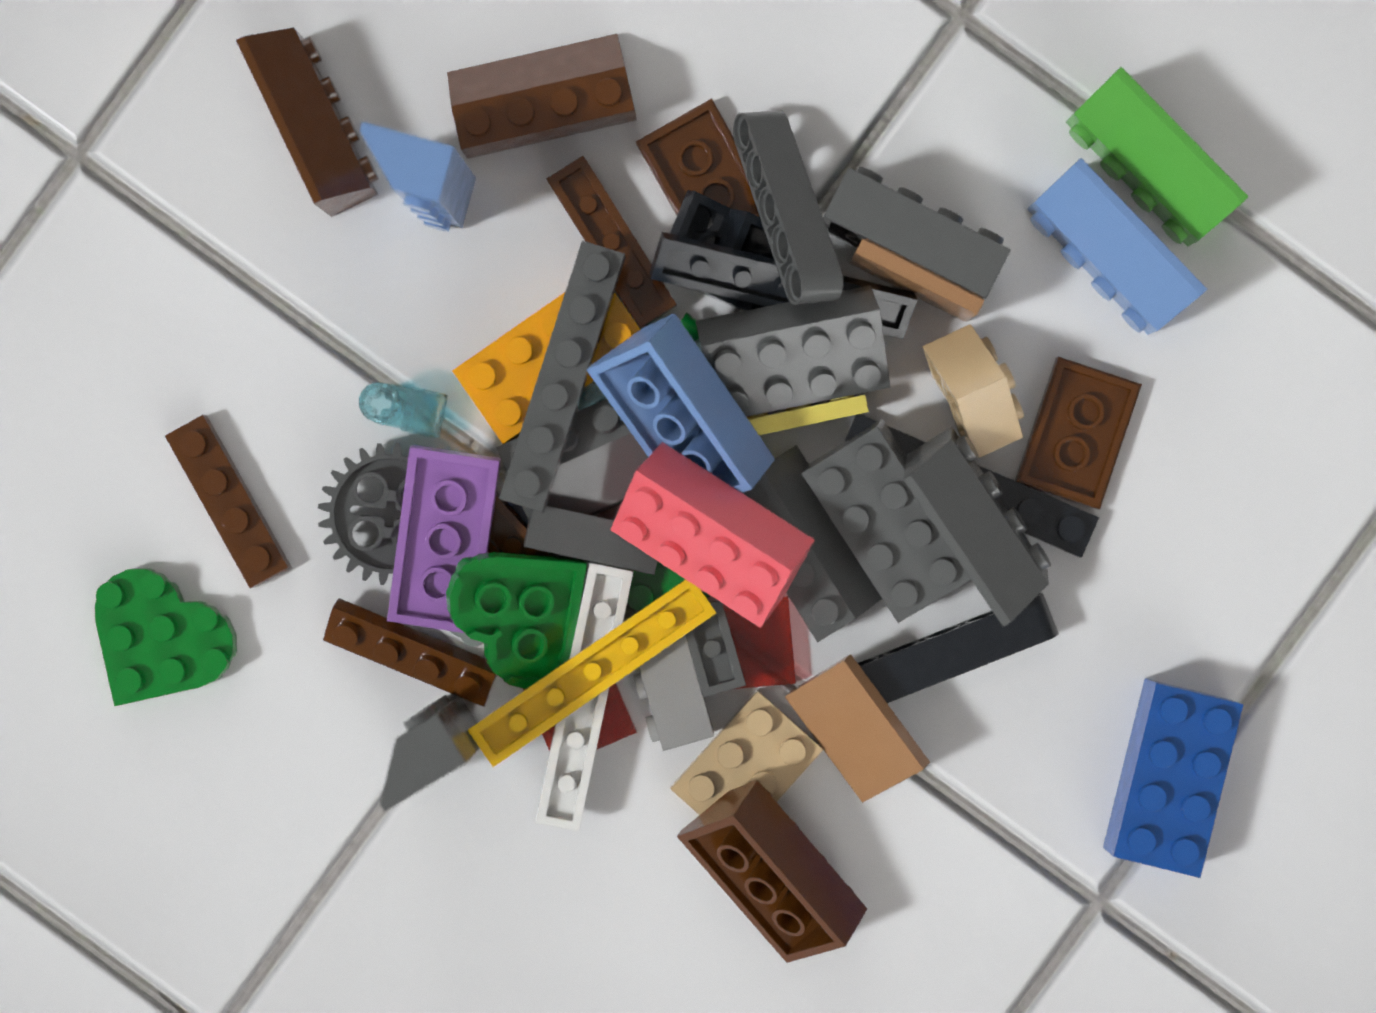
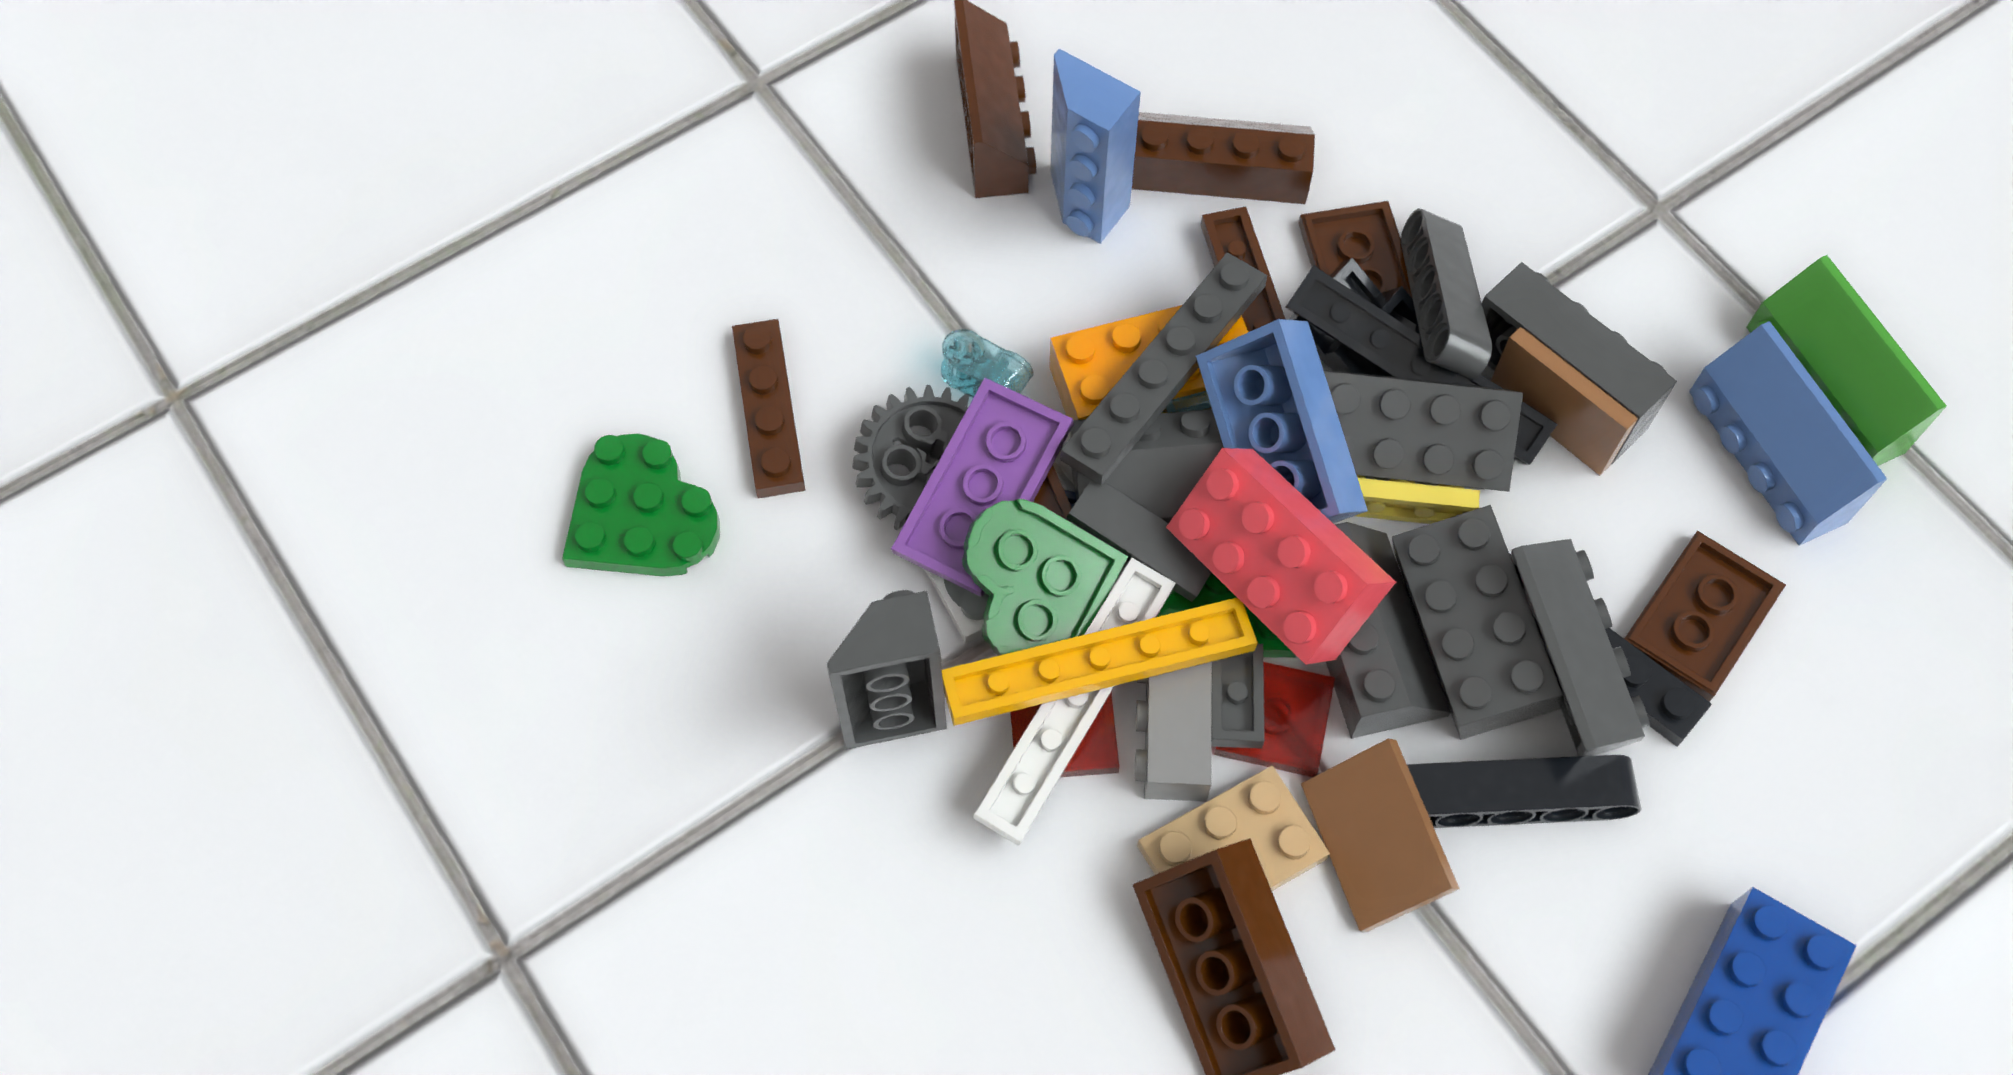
camera: 20 degrees right, 25 degrees down
(410, 652) = (871, 576): reddish brown plate -> none
(976, 389) = (1608, 521): tan brick -> none

